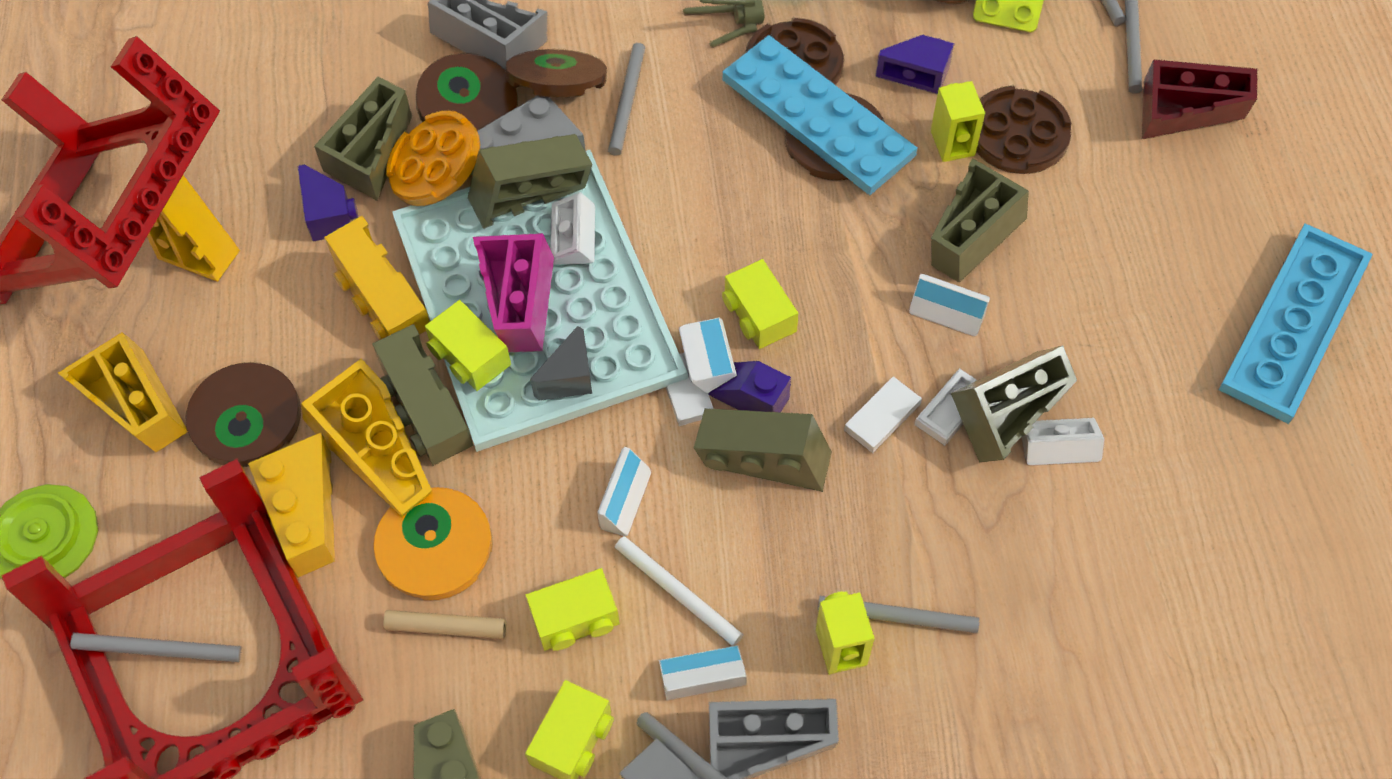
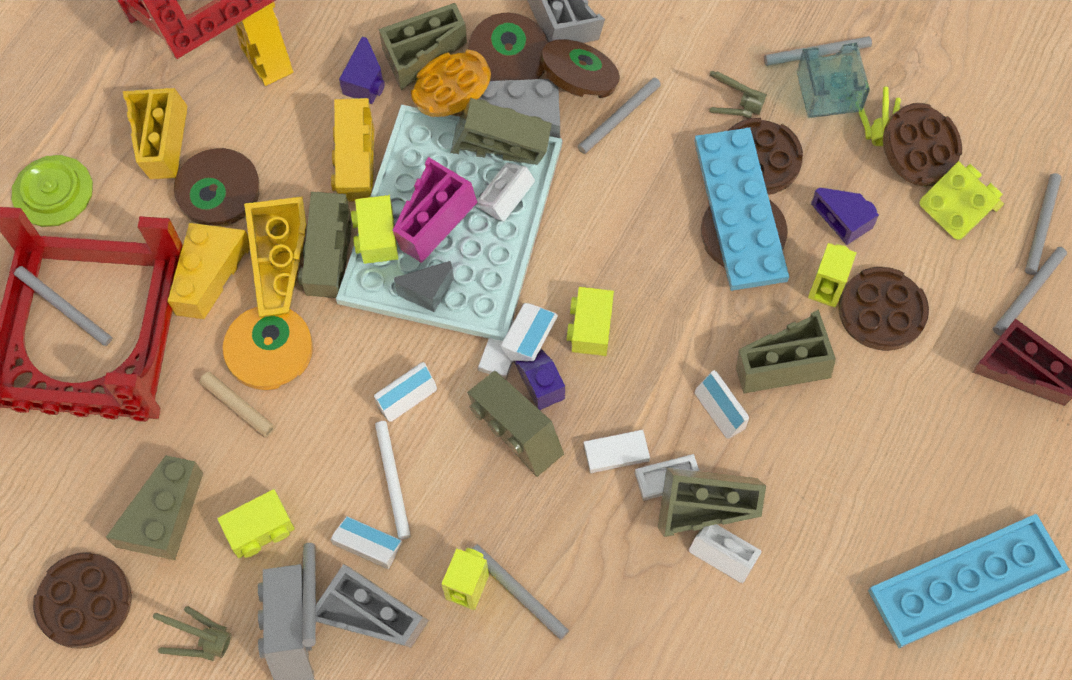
camera: 35 degrees right, 5 degrees up
(573, 610) = (316, 448): neon yellow brick -> none

